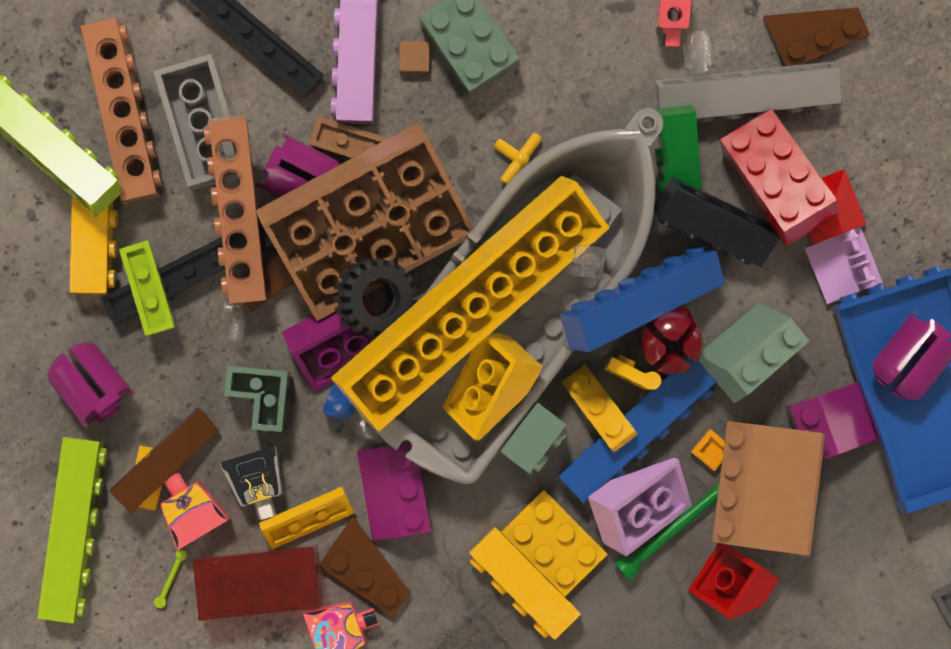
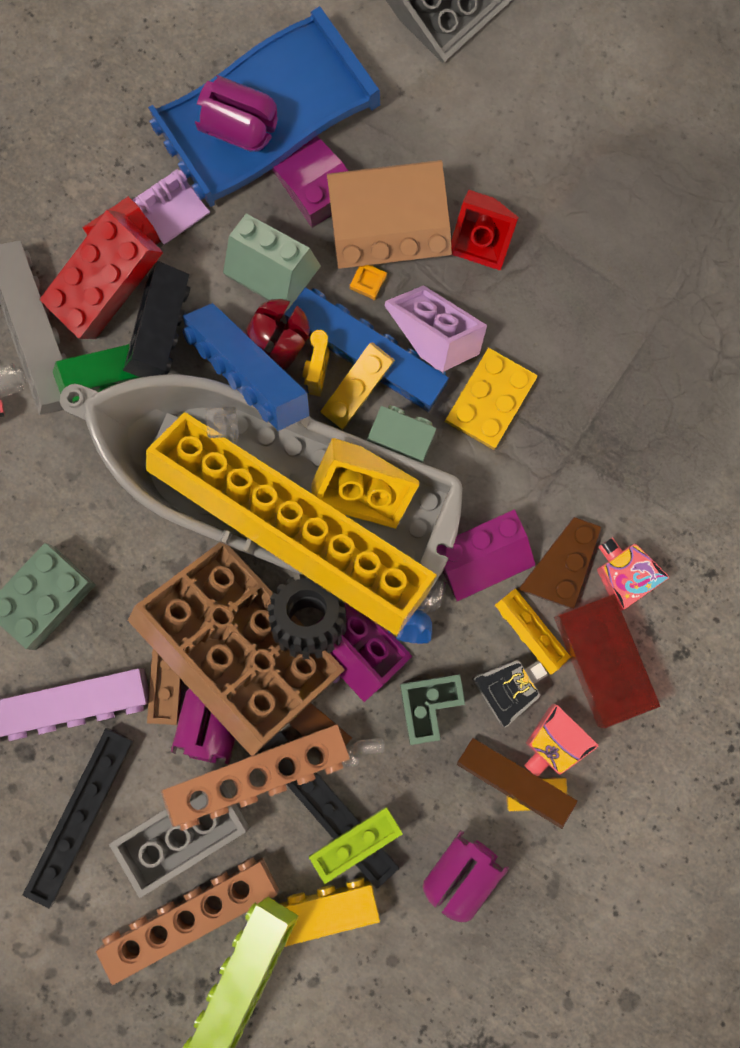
camera: 105 degrees left, 5 degrees down
(71, 530) = (608, 856): lime brick -> none
(161, 600) = (648, 749): lime hinge -> none
(414, 57) = (69, 646): medium nougat tile -> none
(519, 158) = (143, 521): yellow piece -> none
(524, 582) = (535, 415): yellow brick -> none
(631, 564) = (494, 324): green piece -> none

